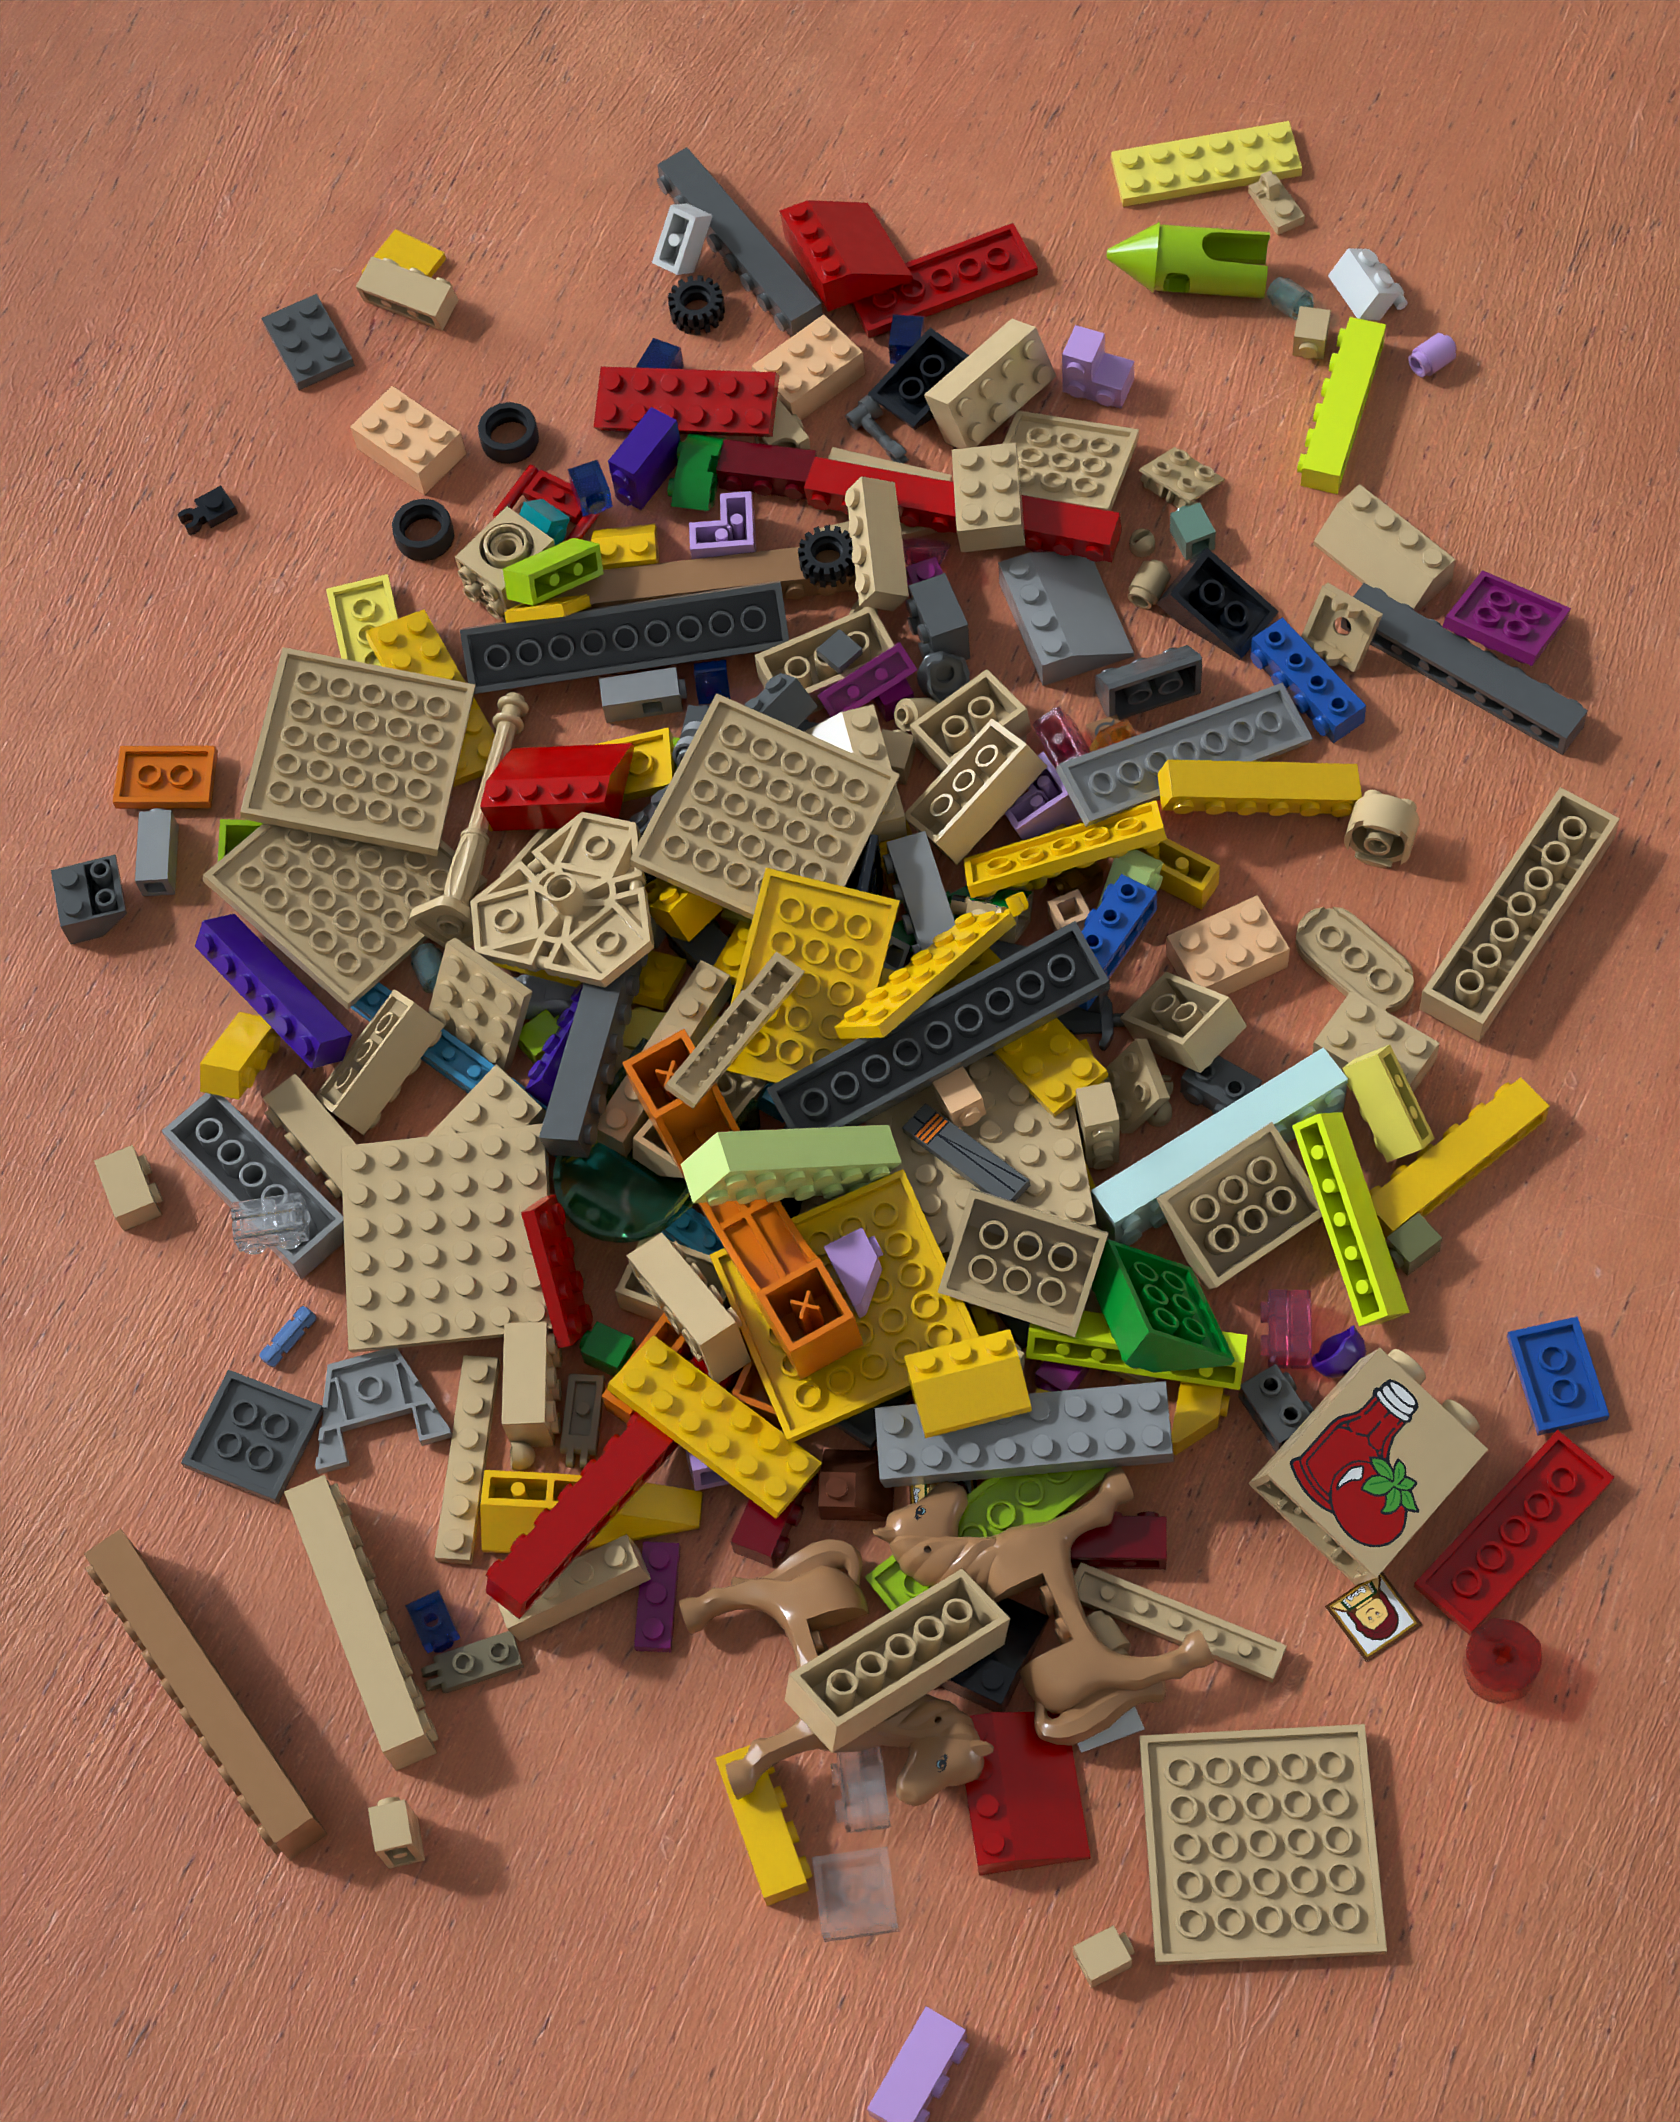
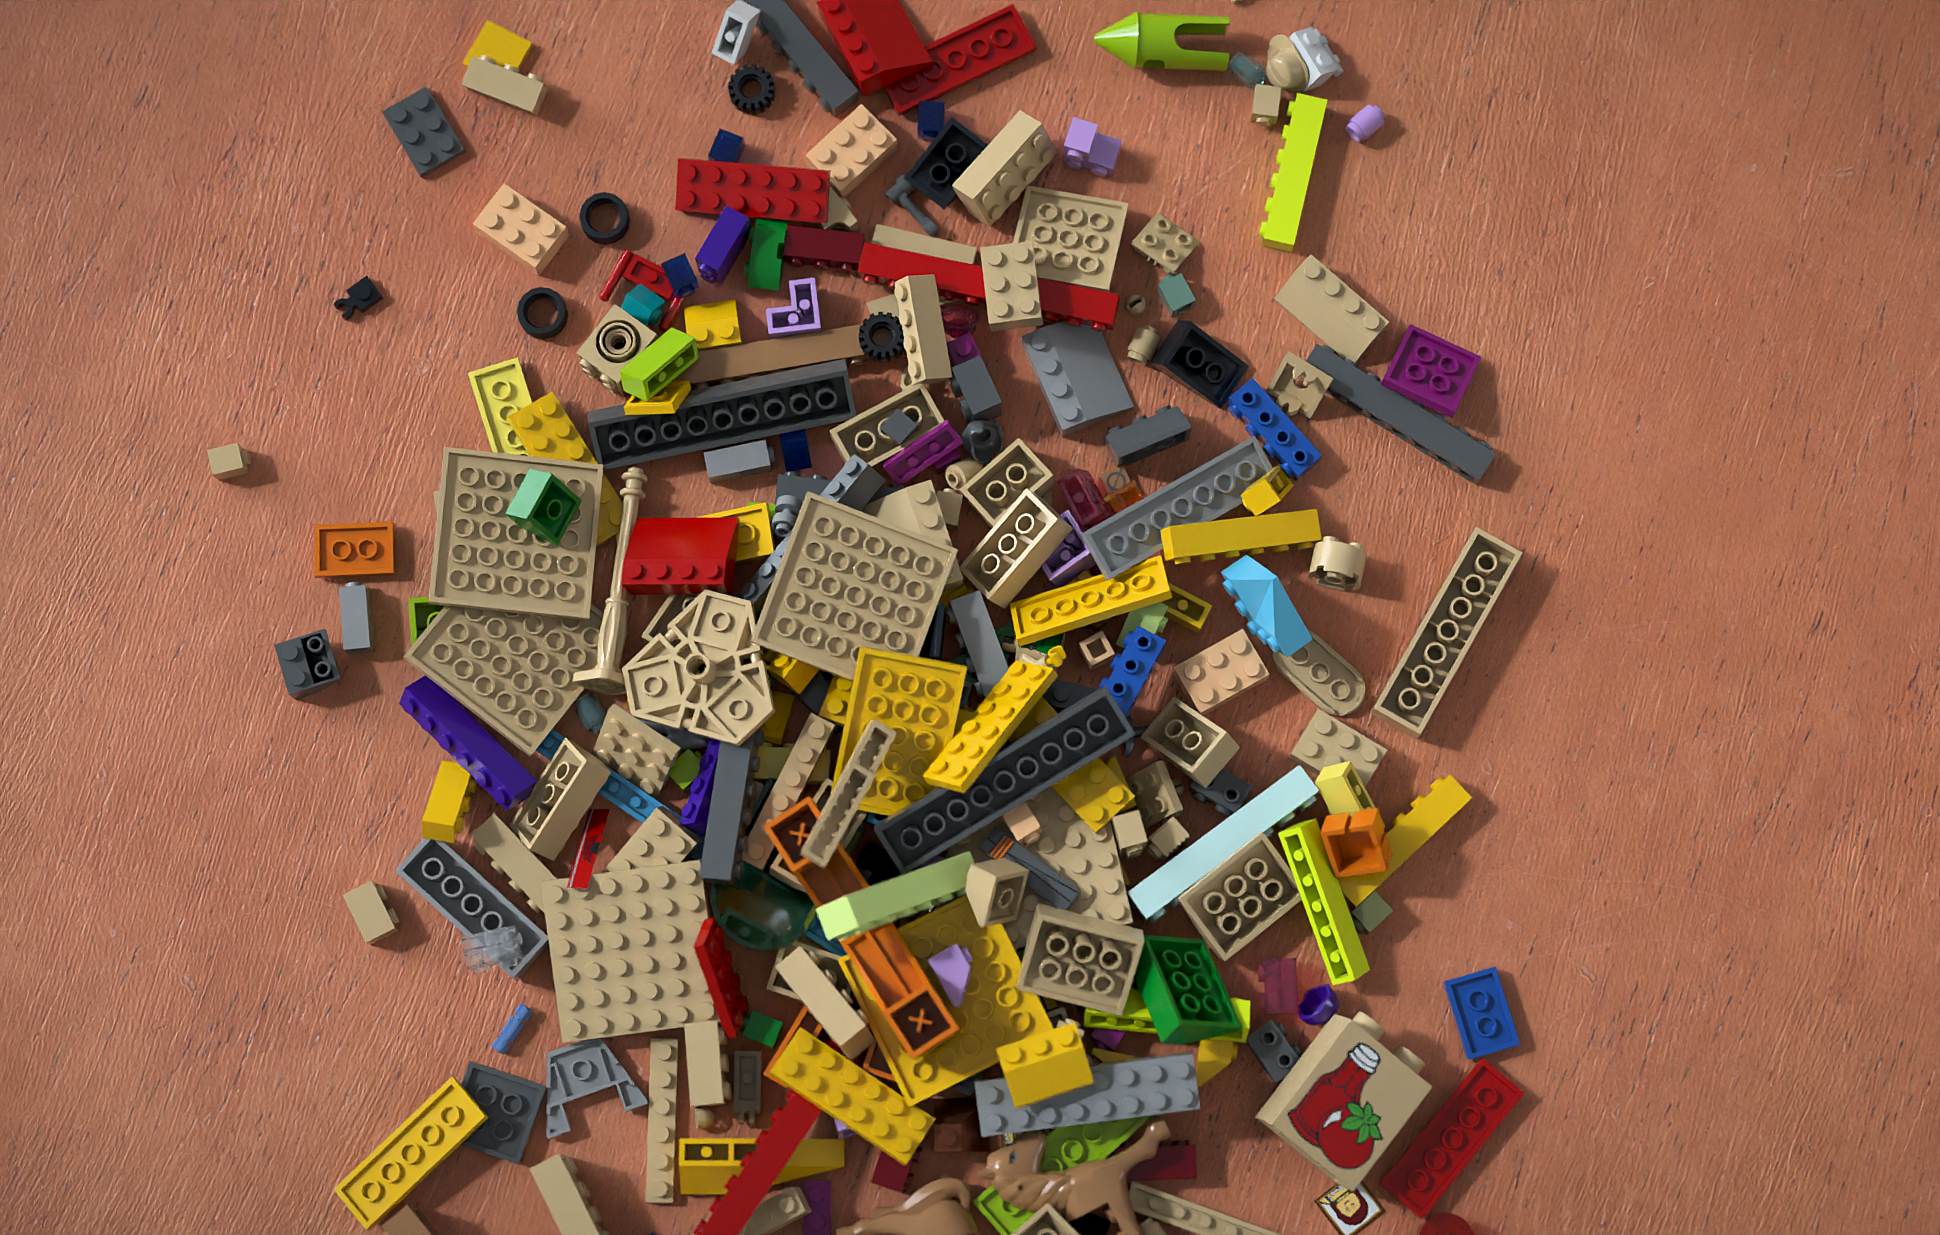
camera: 10 degrees left, 15 degrees up
(28, 675) = (228, 461): none -> tan brick
(138, 1476) = (411, 1153): none -> yellow plate
(395, 716) = (543, 506): none -> green slope
(406, 1117) = (588, 849): none -> red sticker
(919, 1170) = (996, 890): none -> tan slope
(1146, 1134) = (1167, 840): none -> tan brick
(1287, 861) = (1265, 606): none -> medium azure slope
(1294, 740) = (1266, 491): none -> yellow slope
(1338, 290) = (1285, 65): none -> tan piece
(1394, 1142) = (1356, 843): none -> orange piece

